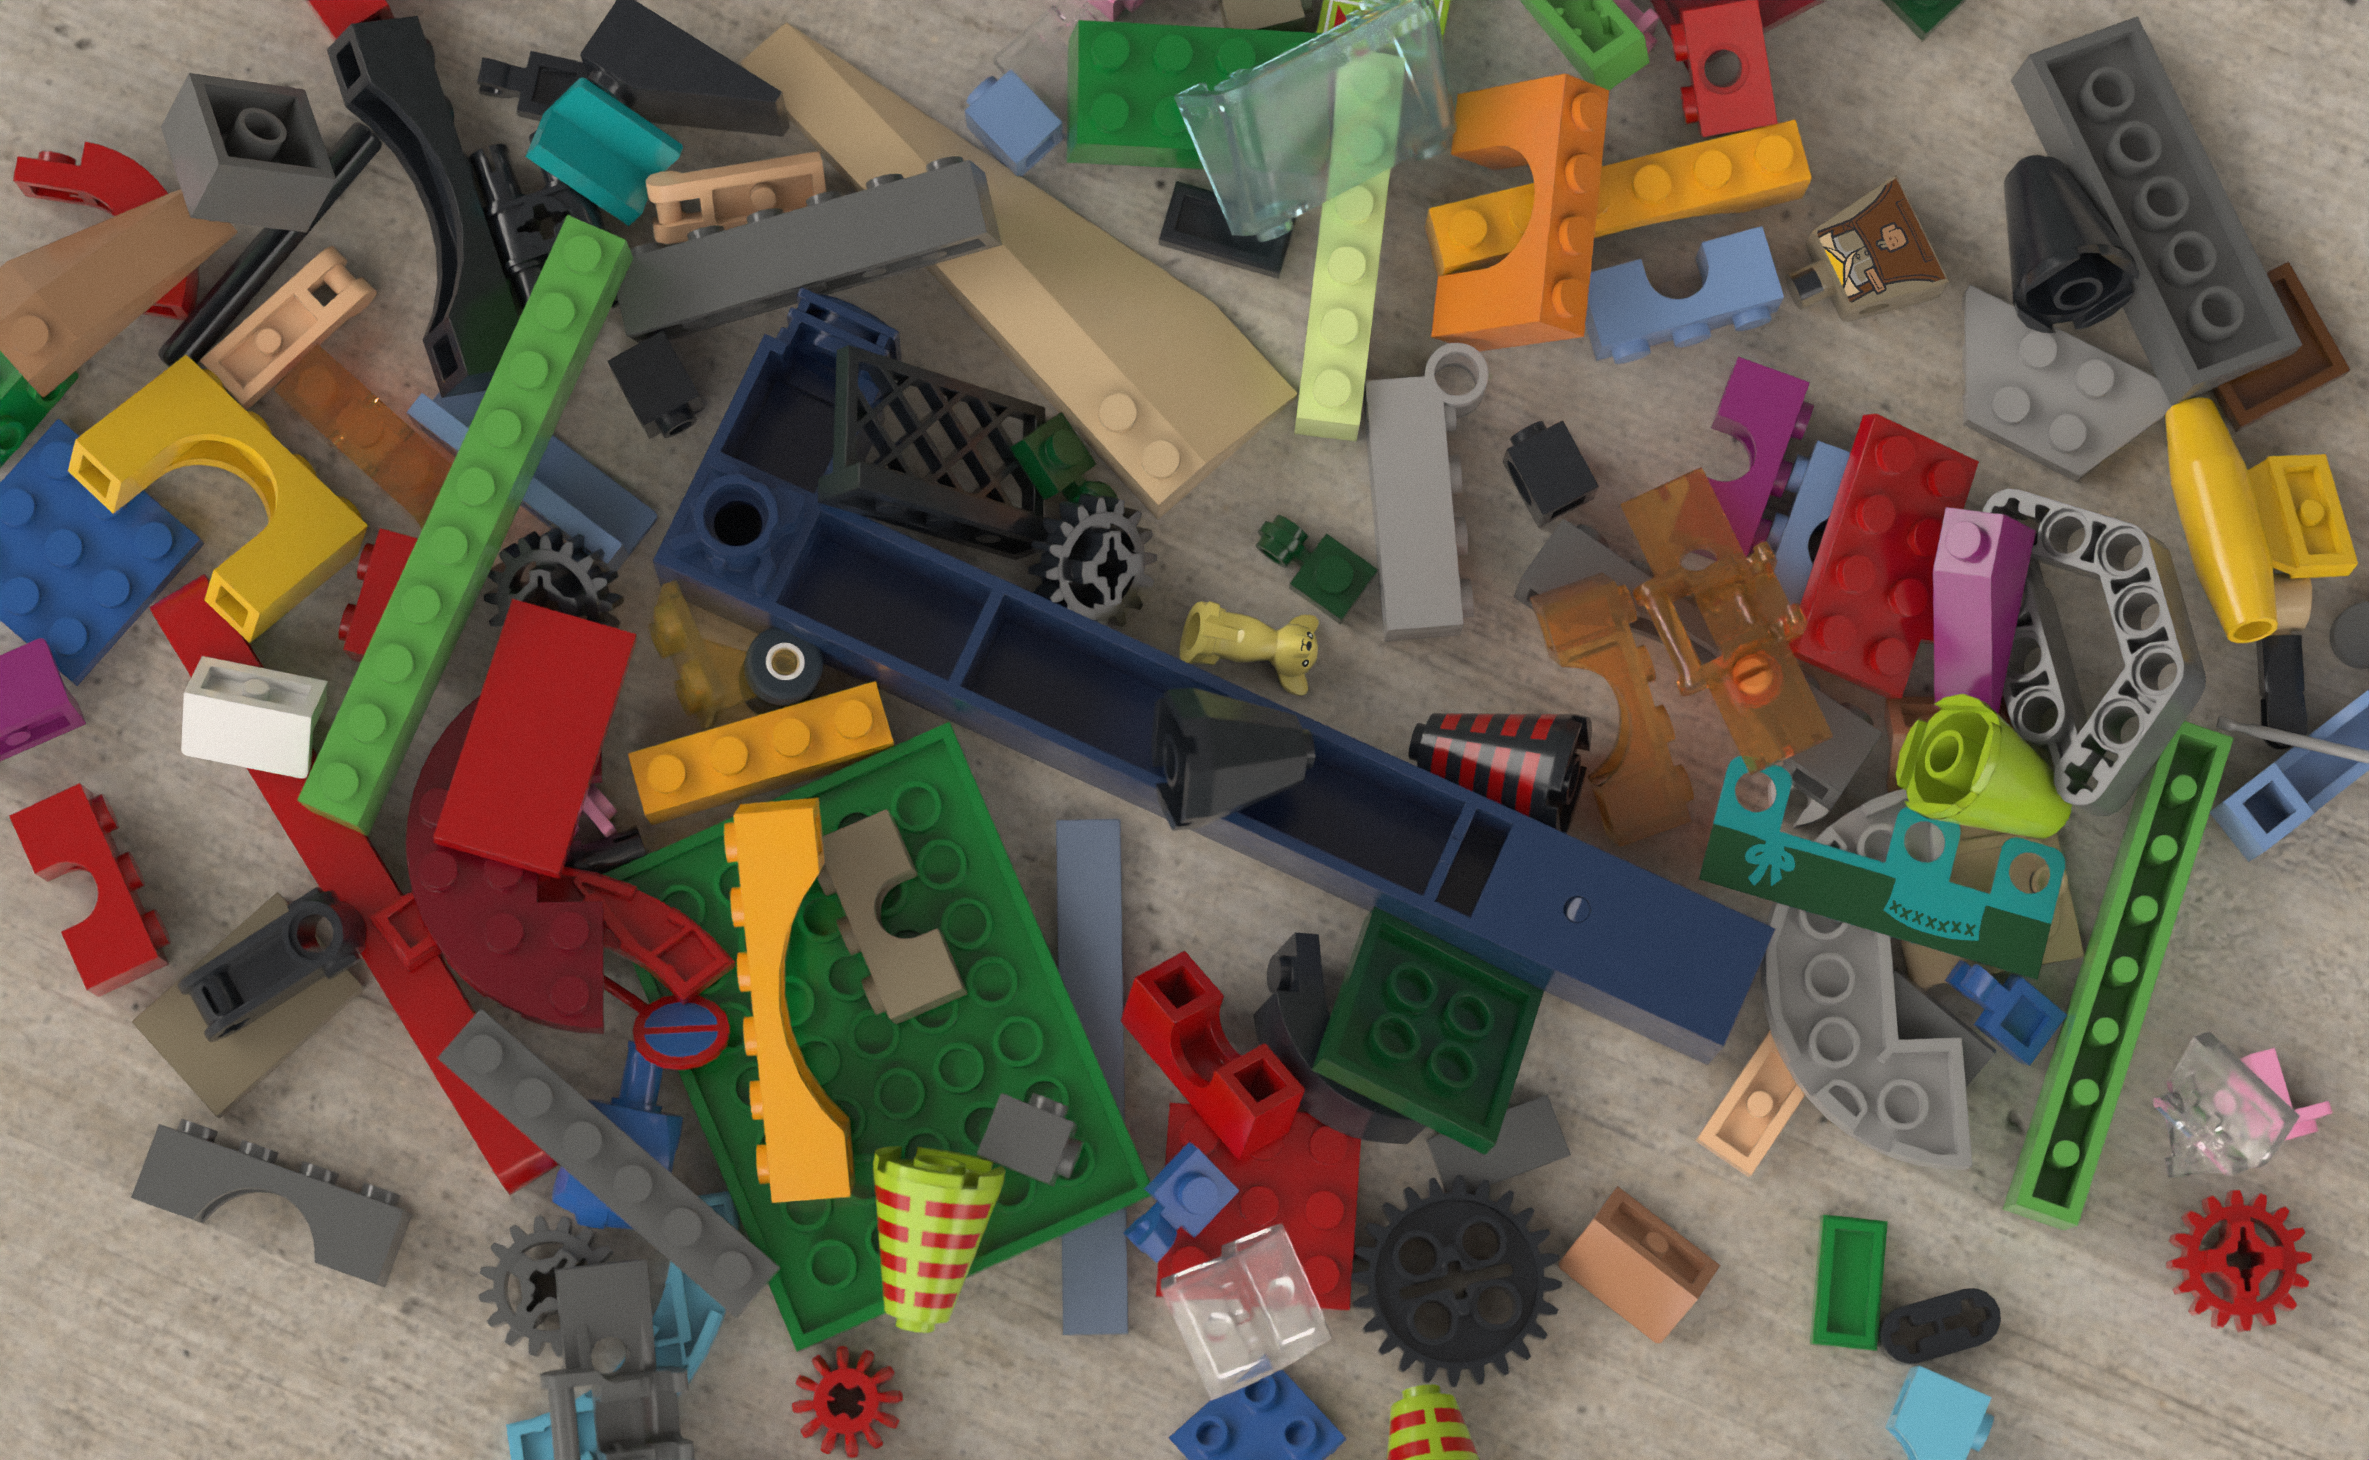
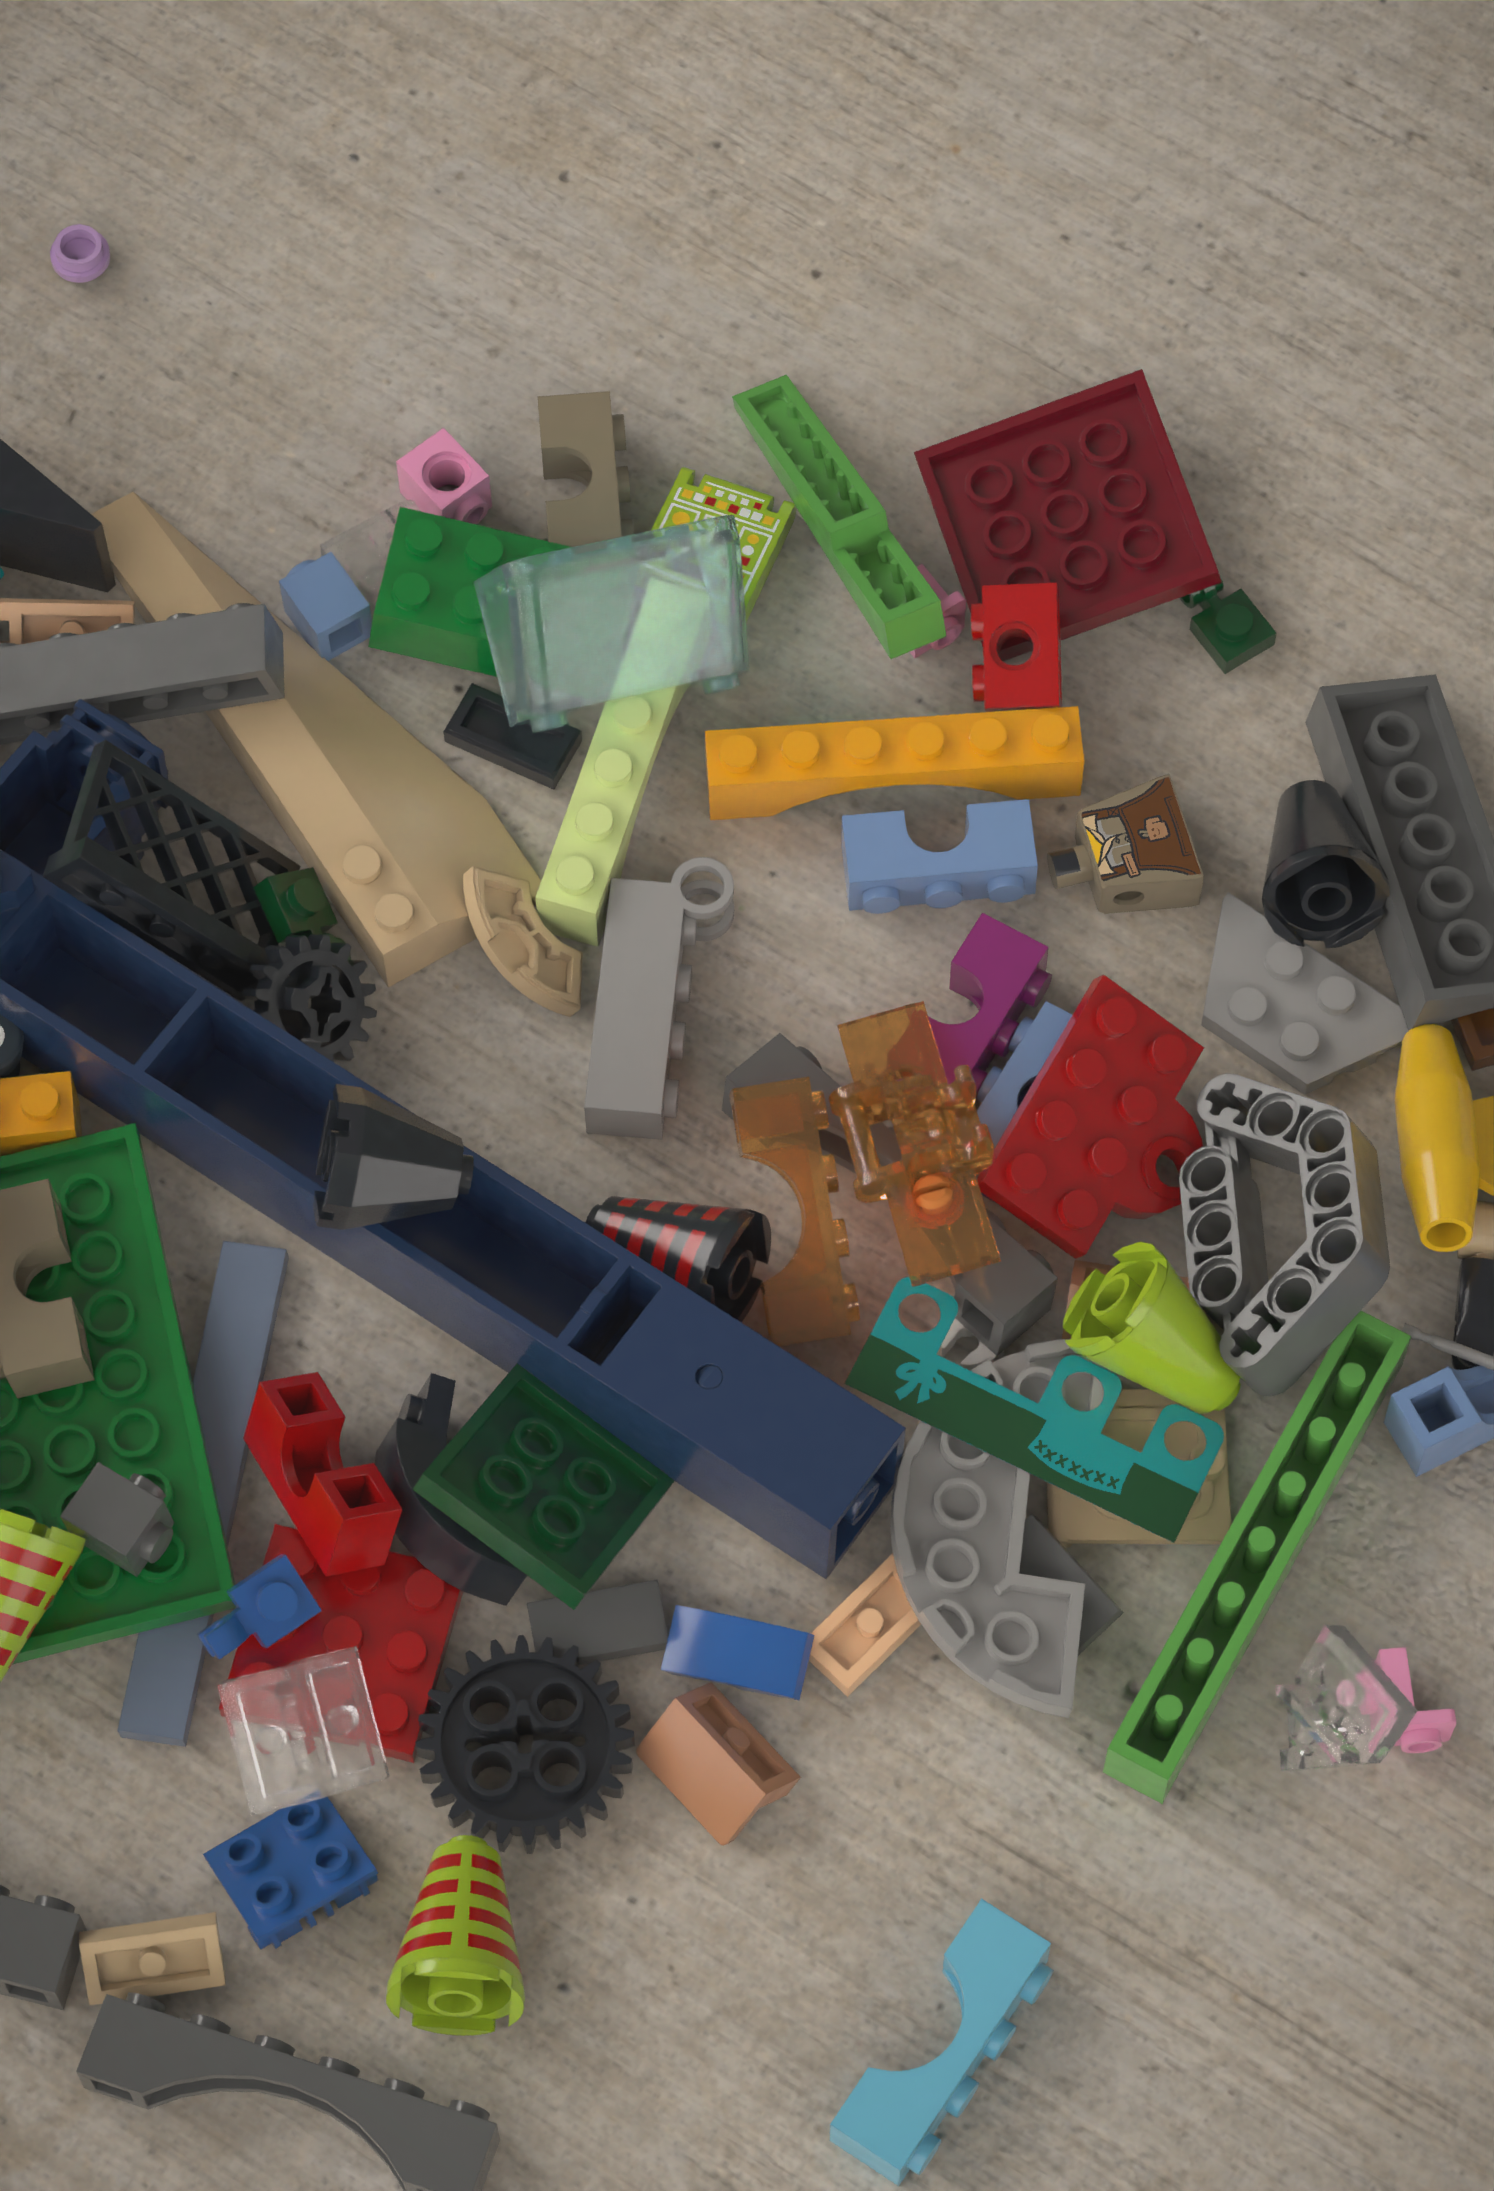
camera: 15 degrees right, 15 degrees down
(1218, 634) = (448, 1101): light yellow animal -> none
(1284, 460) = (520, 943): none -> tan tile
(1328, 577) = (541, 1062): dark green plate -> none
(1544, 282) = (832, 684): orange arch -> none
(1549, 471) = (778, 994): black brick -> none
(1639, 1156) = (737, 1652): none -> blue slope
(1848, 1282) = (930, 1818): green tile -> none
(1943, 1341) = (1012, 1860): black beam -> none
(1977, 601) = (1176, 1160): magenta slope -> none
(2013, 1013) = (1148, 1578): blue plate -> none
(2239, 1287) = (1363, 1860): red gear -> none

